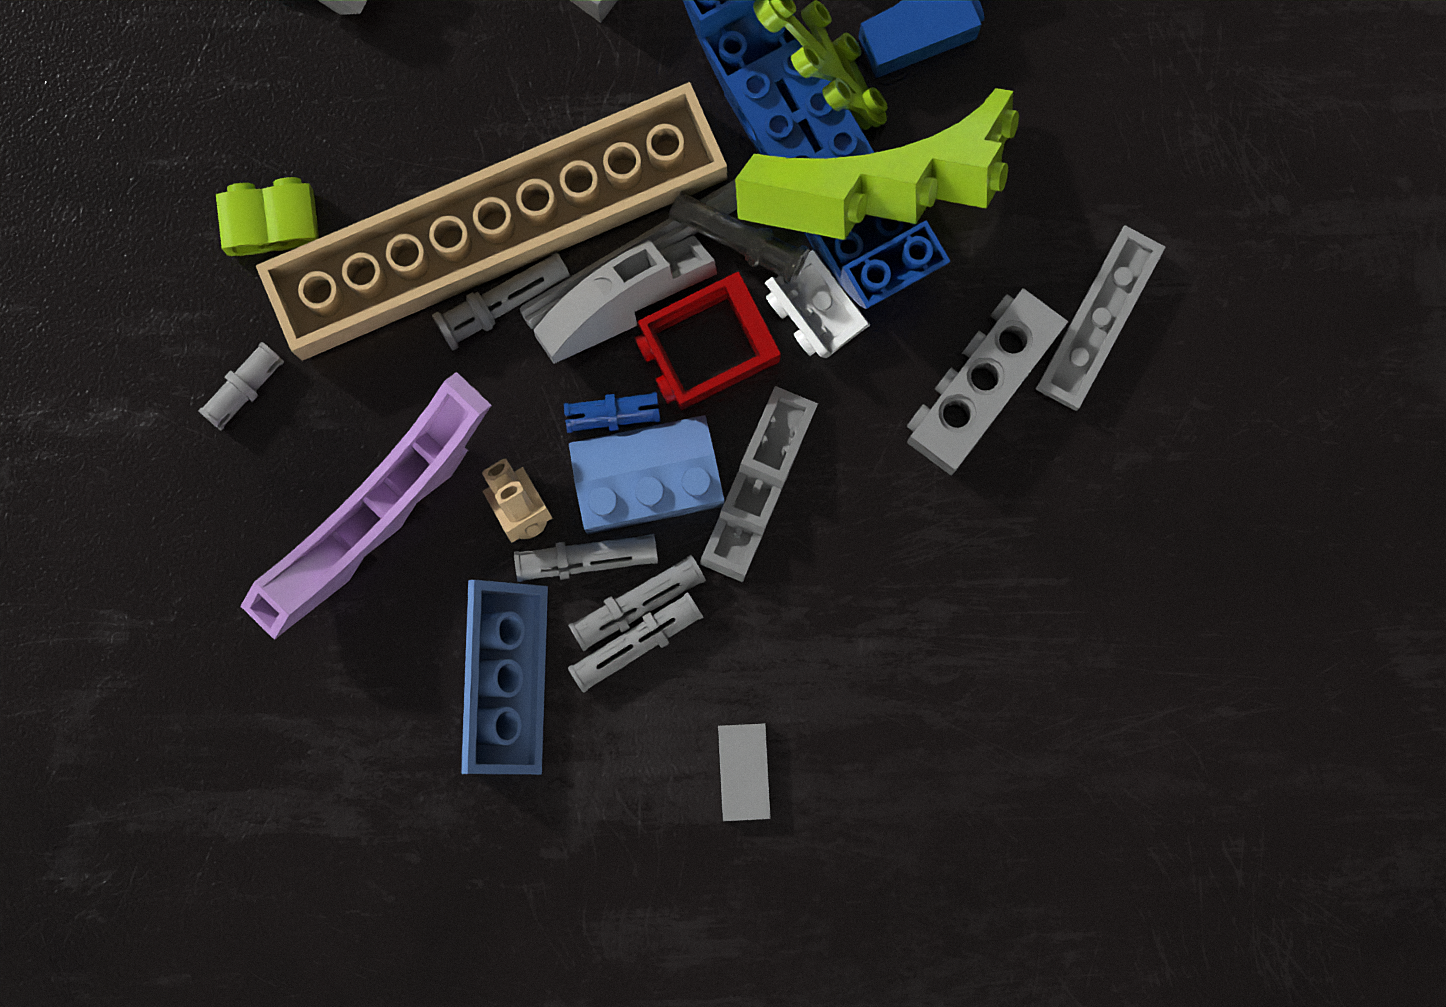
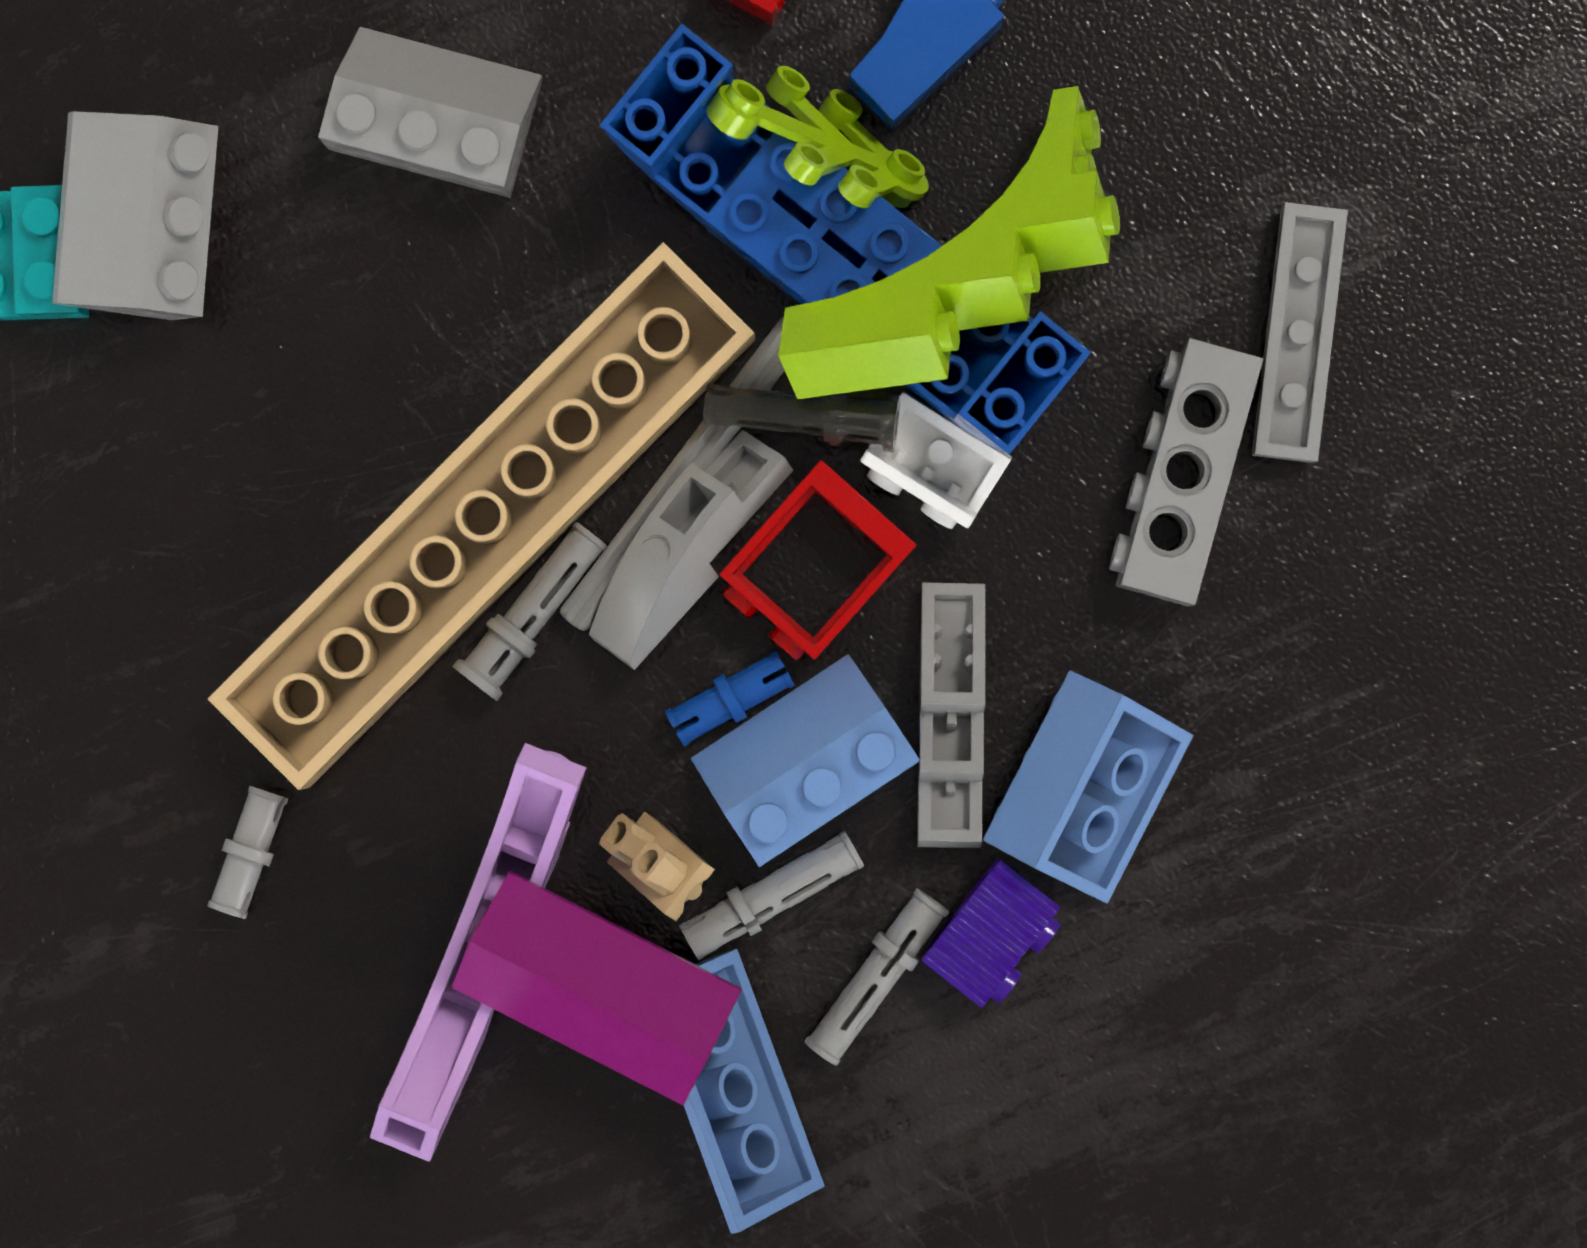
camera: 20 degrees left, 5 degrees up
(266, 218) = (191, 624): lime brick -> none
(436, 562) = (595, 987): none -> magenta slope
(634, 604) = (858, 927): light grey pin -> none
(727, 642) = (991, 934): none -> dark purple brick
(744, 772) = (1076, 1083): light grey tile -> none
(834, 568) = (1088, 786): none -> medium blue slope

